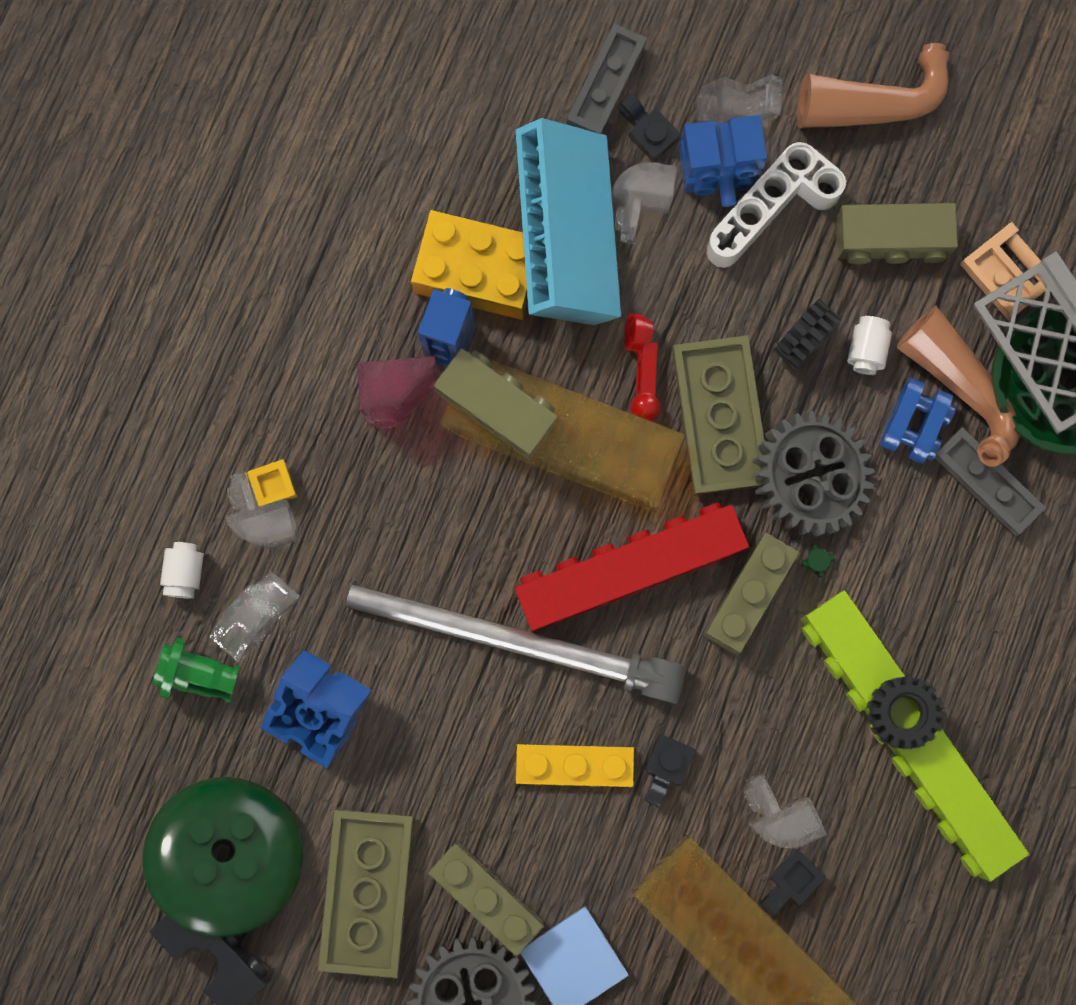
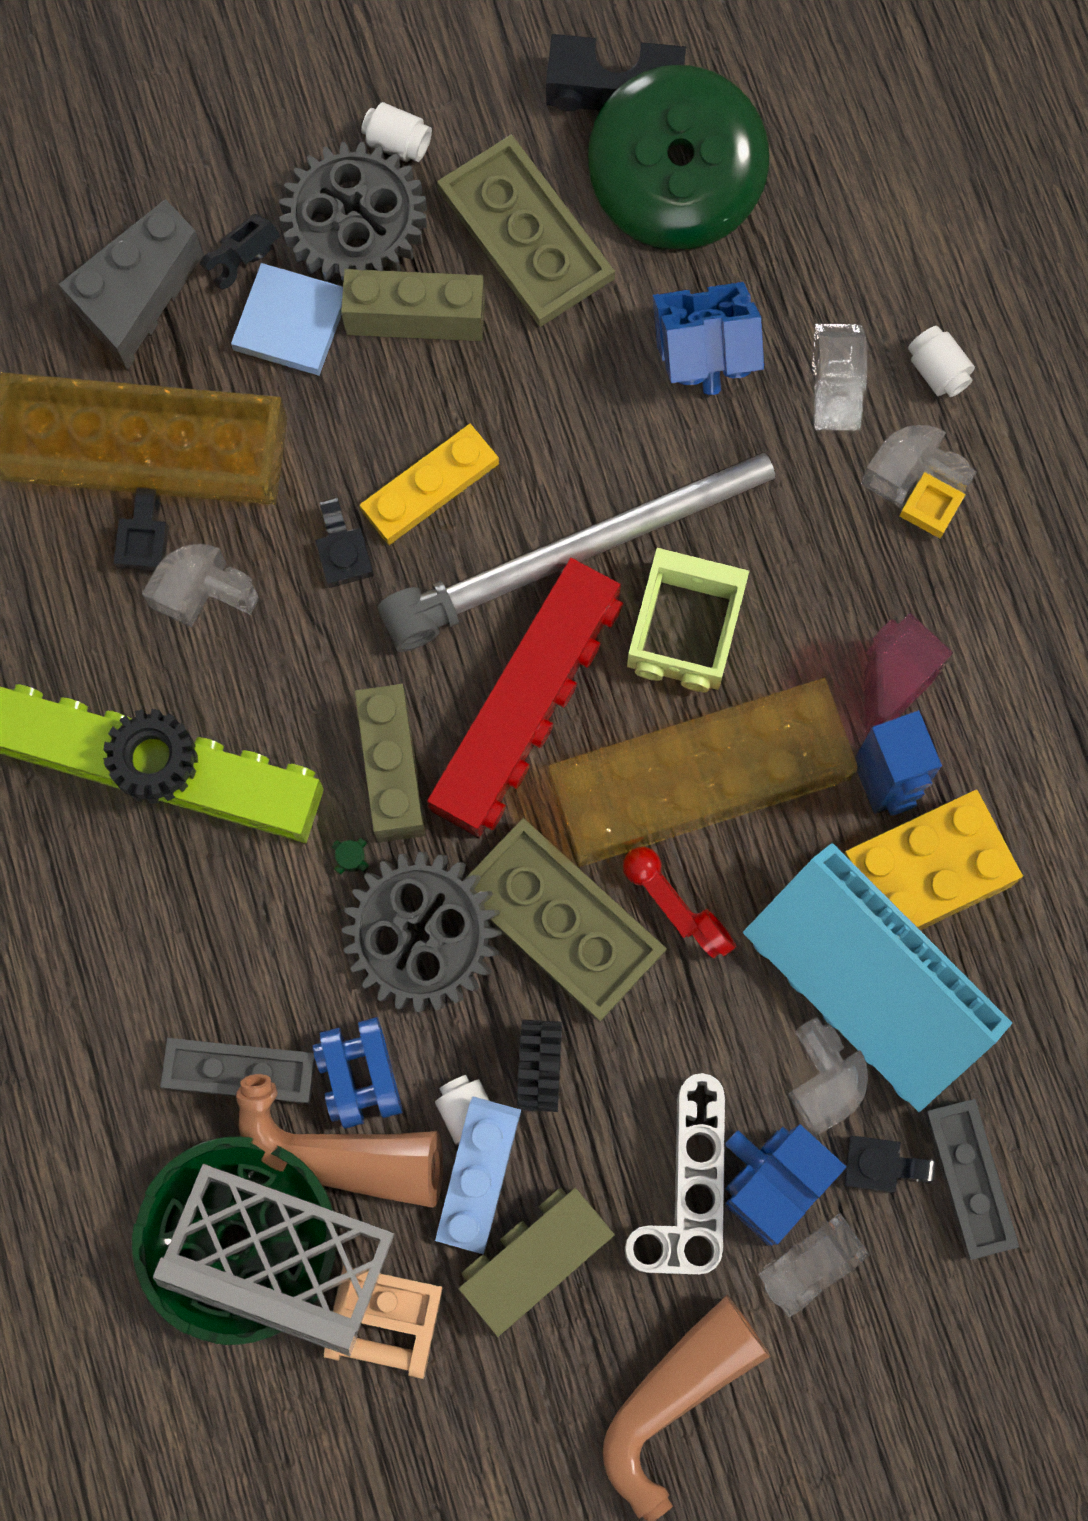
camera: 140 degrees right, 5 degrees down
(193, 673) = (850, 280): green piece -> none
(496, 402) = (786, 724): olive brick -> none
(515, 497) = (698, 576): none -> yellowish green window
(893, 302) = (478, 1175): none -> light blue plate

